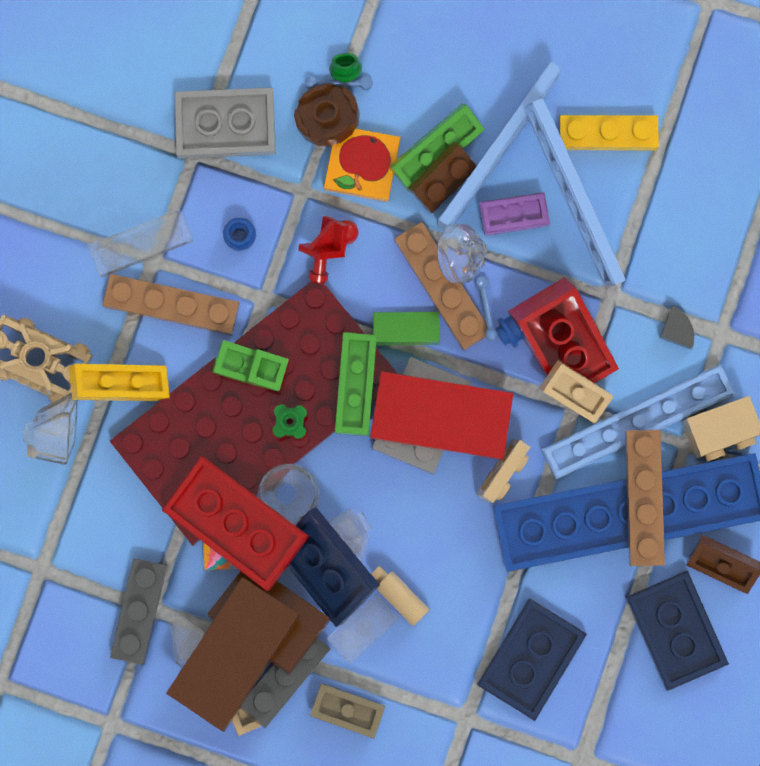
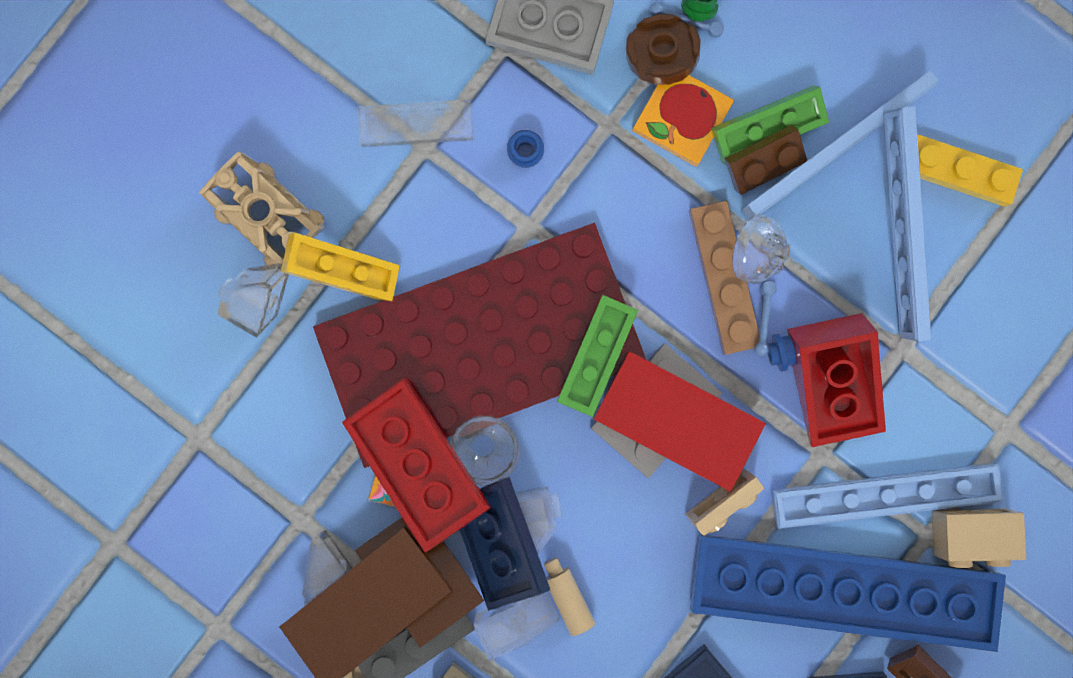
camera: 20 degrees right, 5 degrees up
(138, 611) = (285, 519): dark grey plate -> none
(171, 304) = (427, 200): medium nougat plate -> none
(250, 365) = (489, 297): bright green slope -> none
(296, 428) = (502, 378): green plate -> none
(328, 245) = (618, 193): red piece -> none
(406, 328) = (672, 311): bright green slope -> none
(514, 214) = (829, 225): medium lavender plate -> none
(576, 392) = (833, 443): tan plate -> none
(644, 498) = (869, 586): medium nougat plate -> none
(678, 329) = (964, 409): dark grey tile -> none

